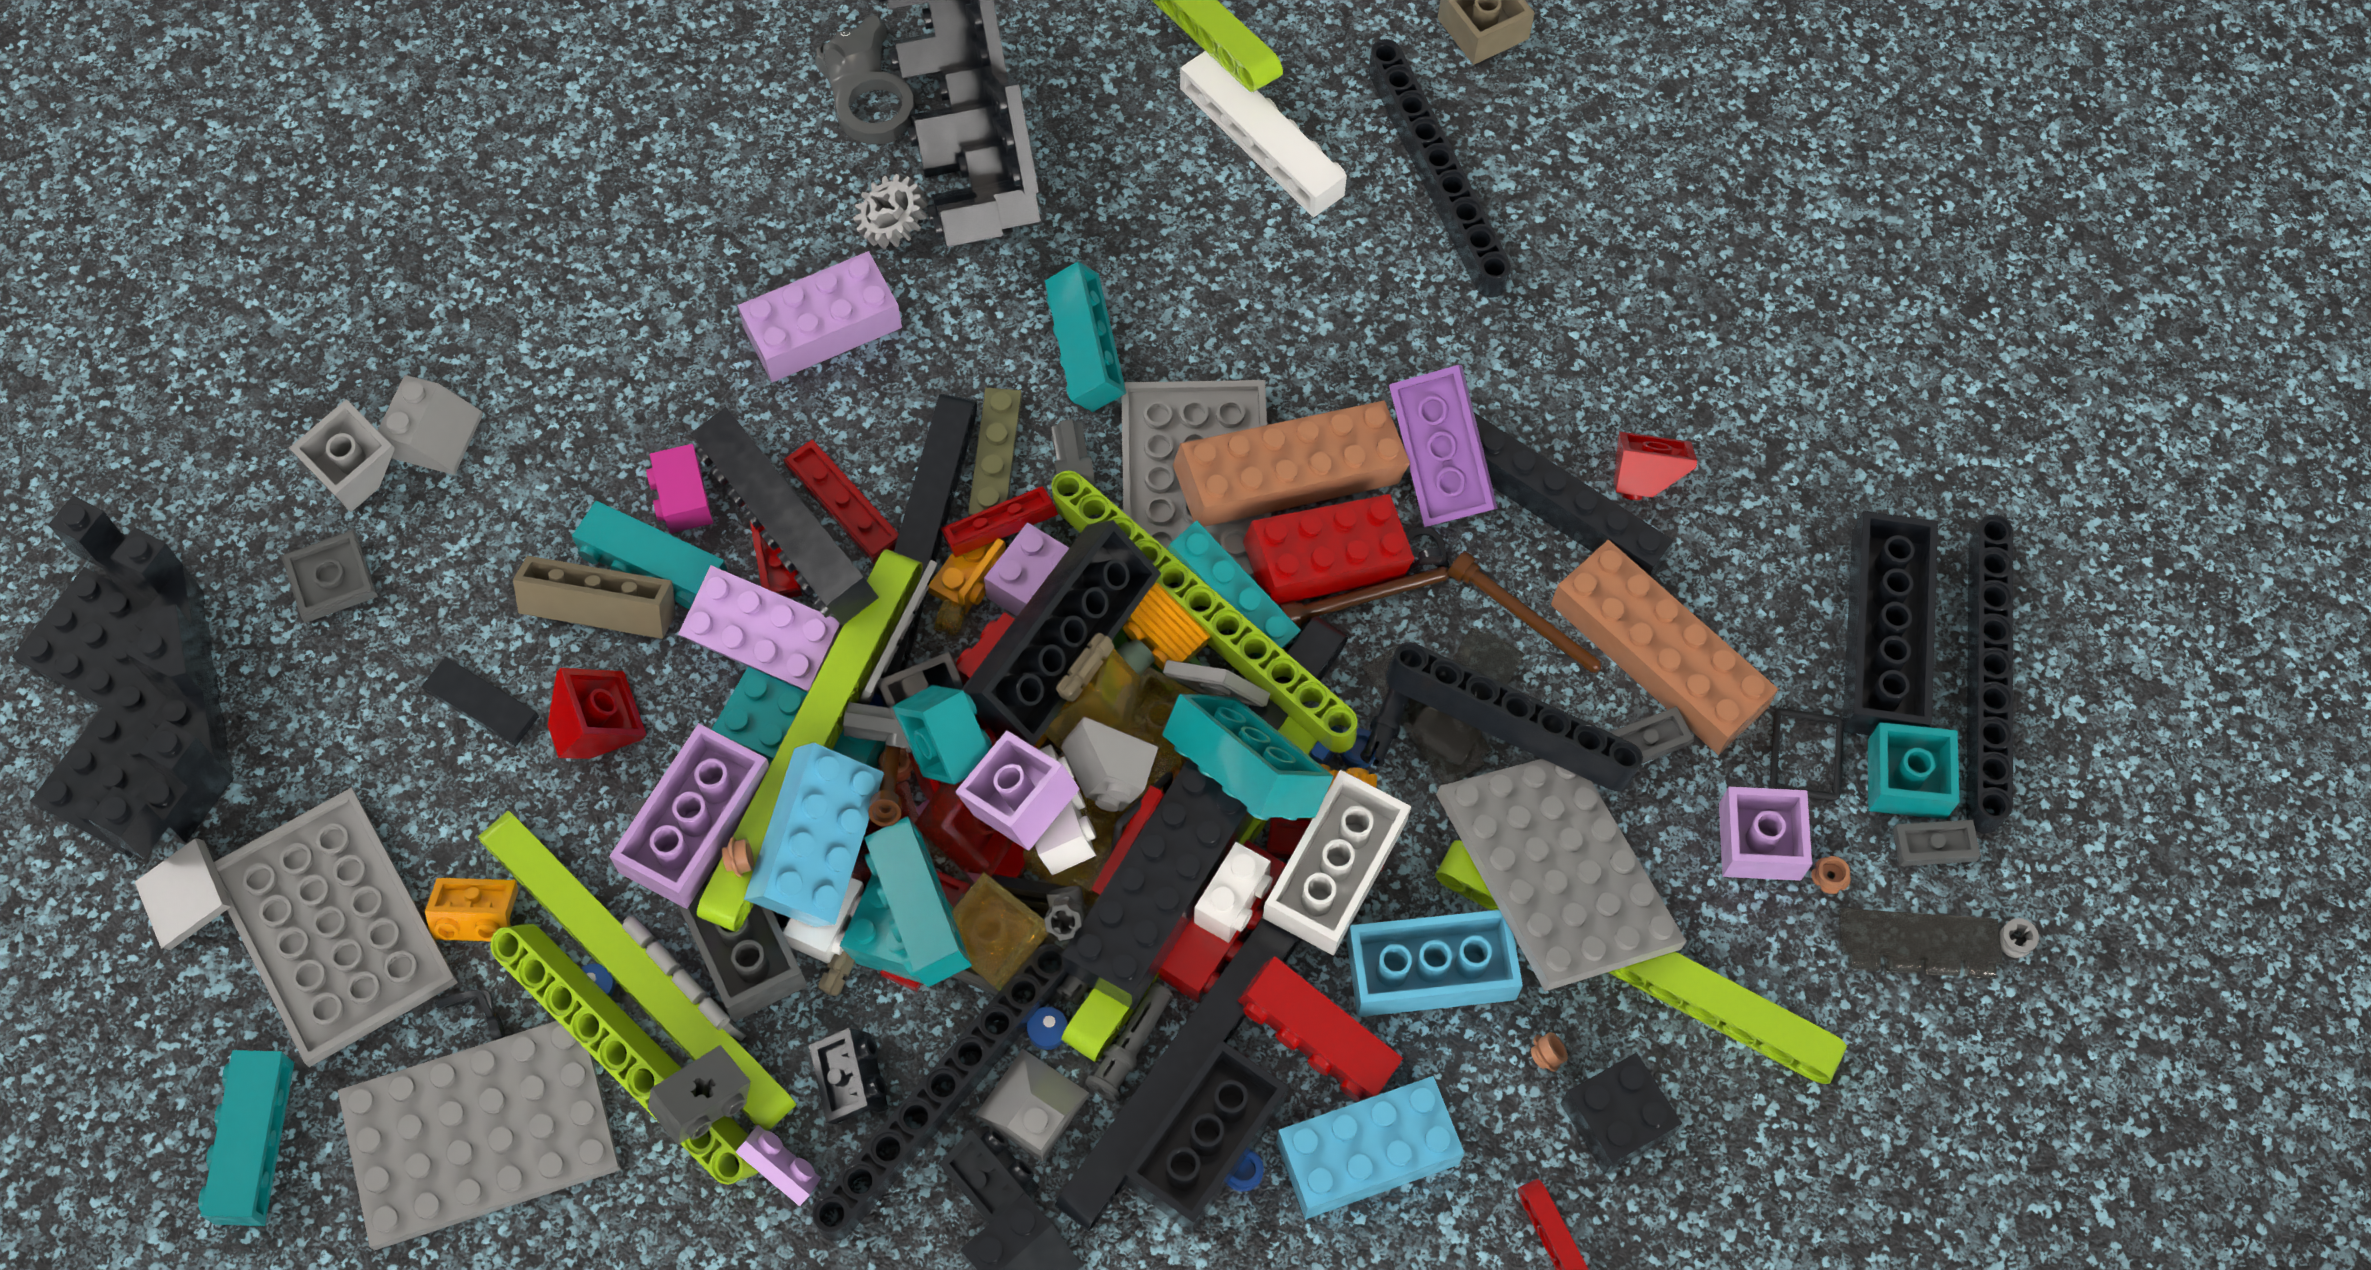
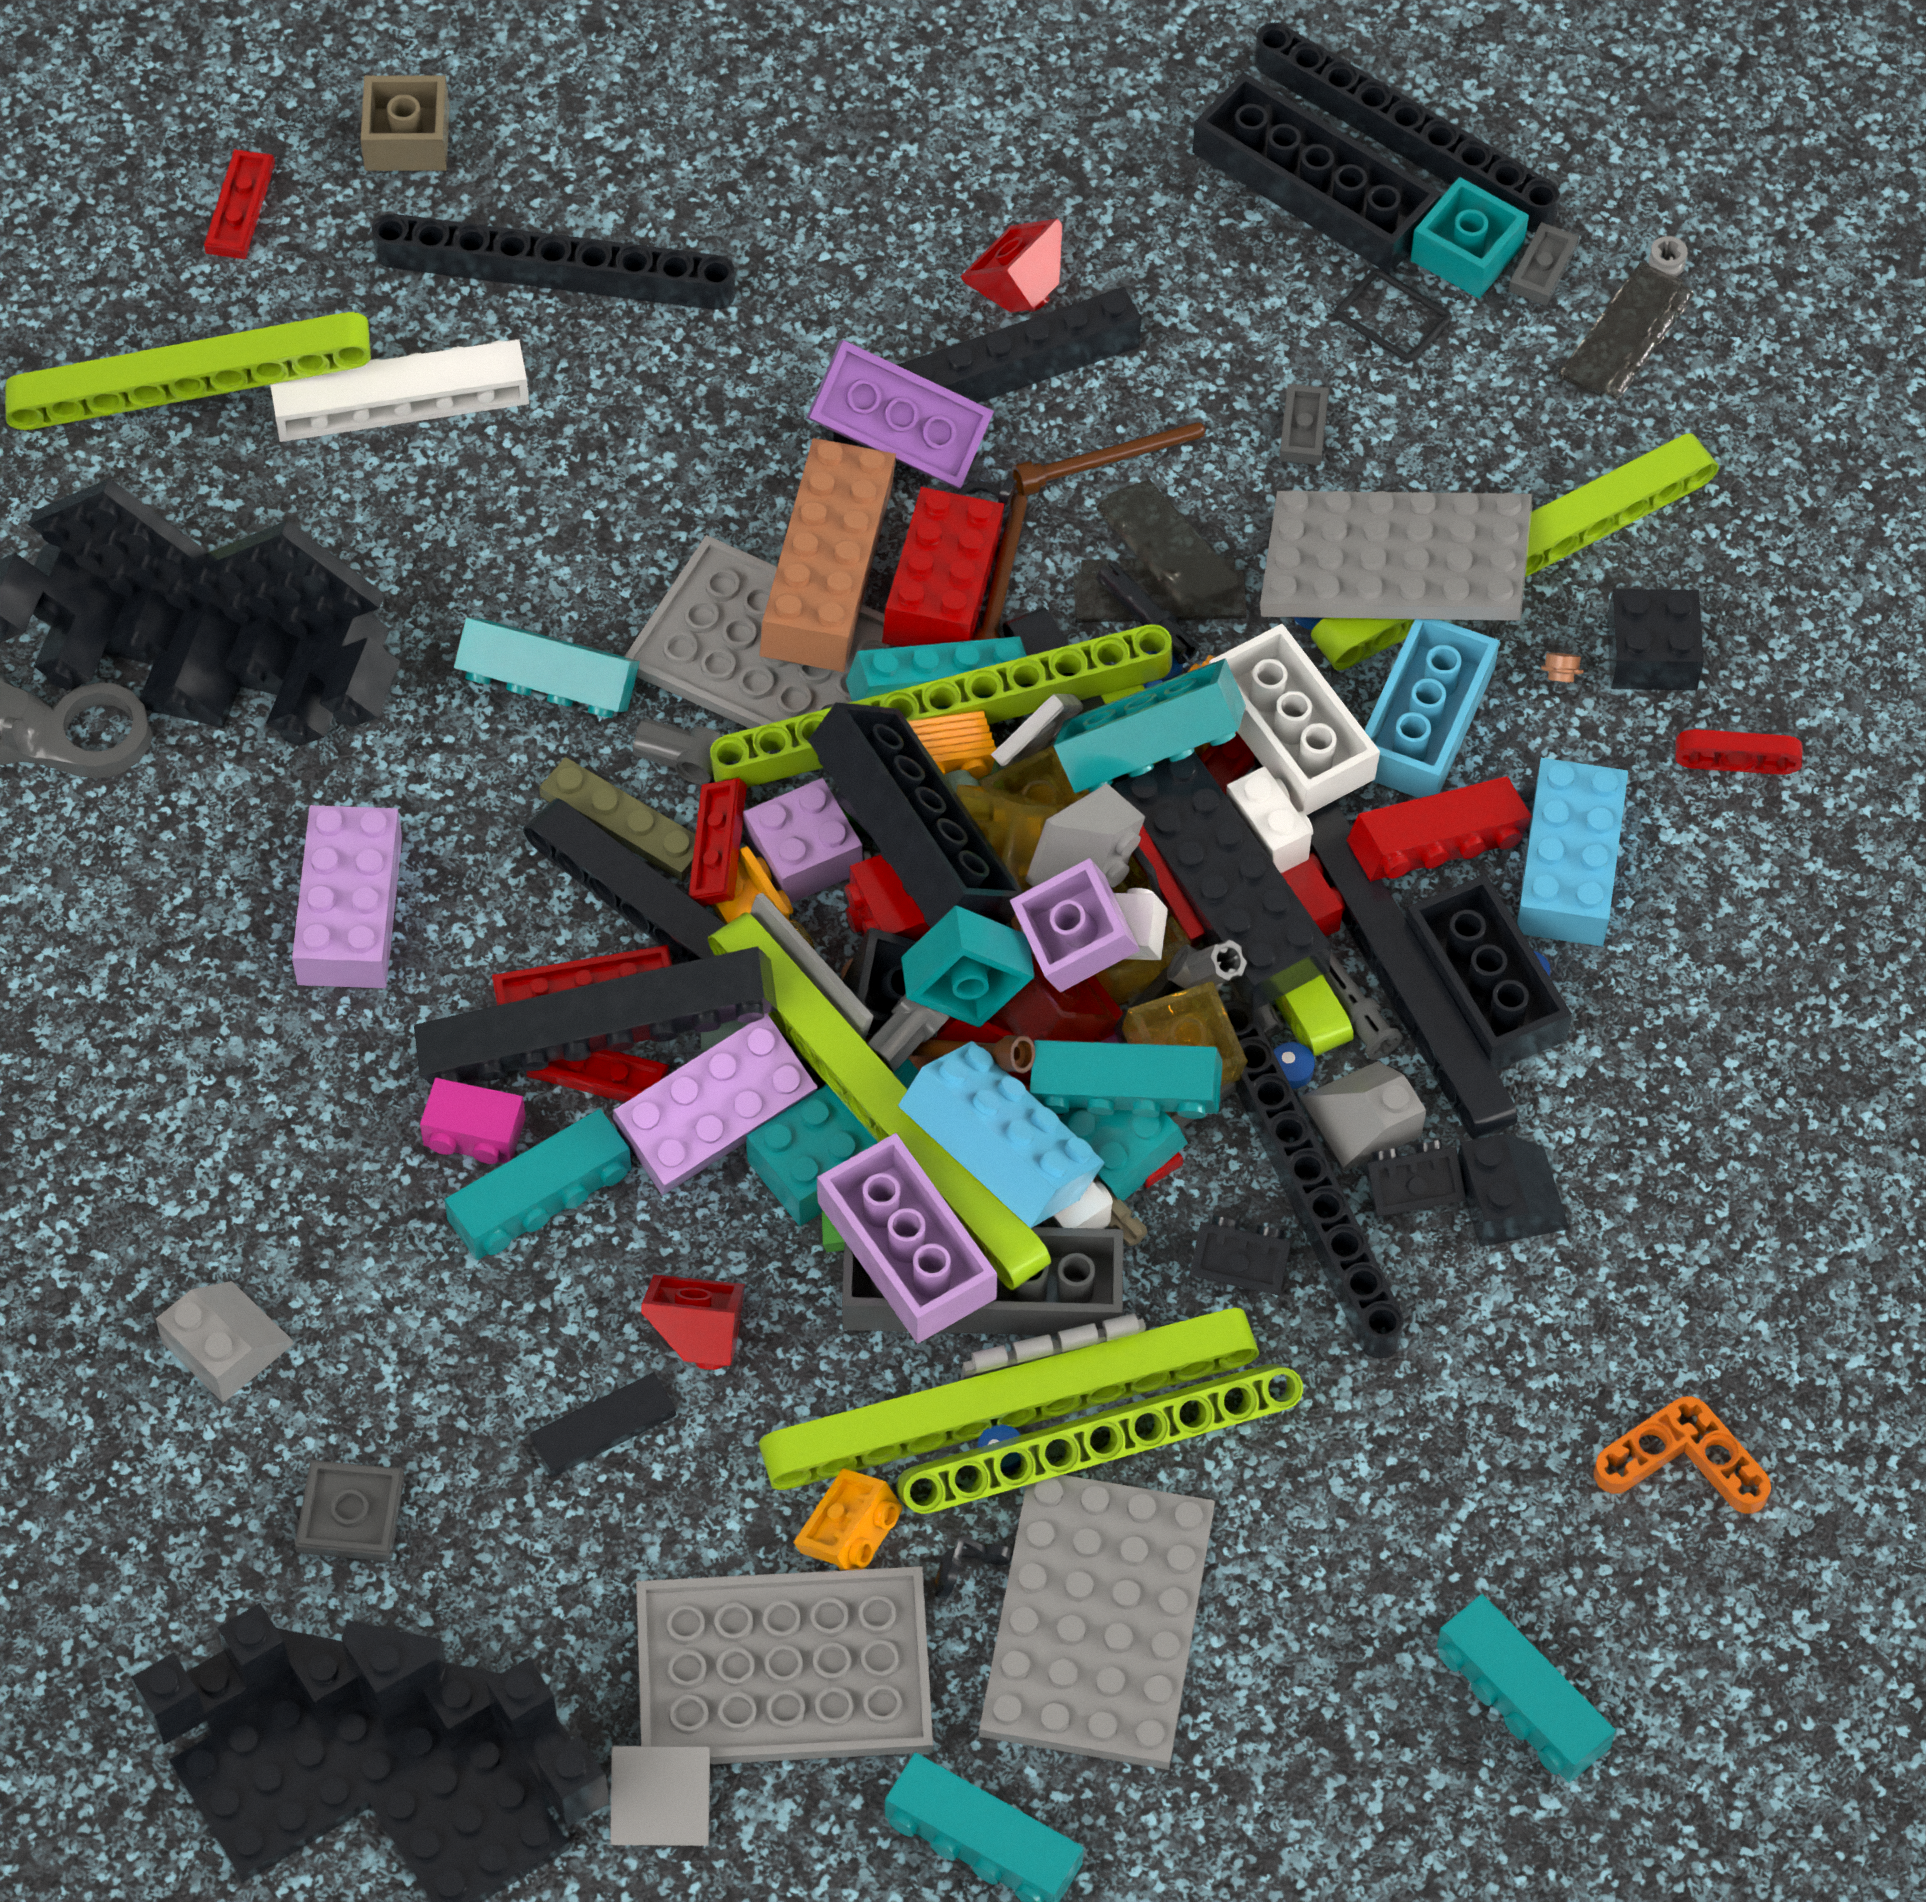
camera: 60 degrees left, 5 degrees down
(345, 454) = (217, 1422): light grey slope -> none
(594, 597) = (559, 1252): dark tan brick -> none
(699, 1095) = (1208, 1367): dark grey brick -> none
(738, 856) = (987, 1205): nougat plate -> none
(778, 1165) = (1288, 1350): lavender plate -> none
(890, 211) = (250, 755): light grey gear -> none
(1085, 667) = (973, 811): dark tan axle -> none
(1513, 716) = (1224, 510): black beam -> none
(1663, 646) = (1218, 360): nougat brick -> none
(1765, 833) = (1459, 383): lavender brick -> none
(1838, 868) = (1524, 351): nougat plate -> none

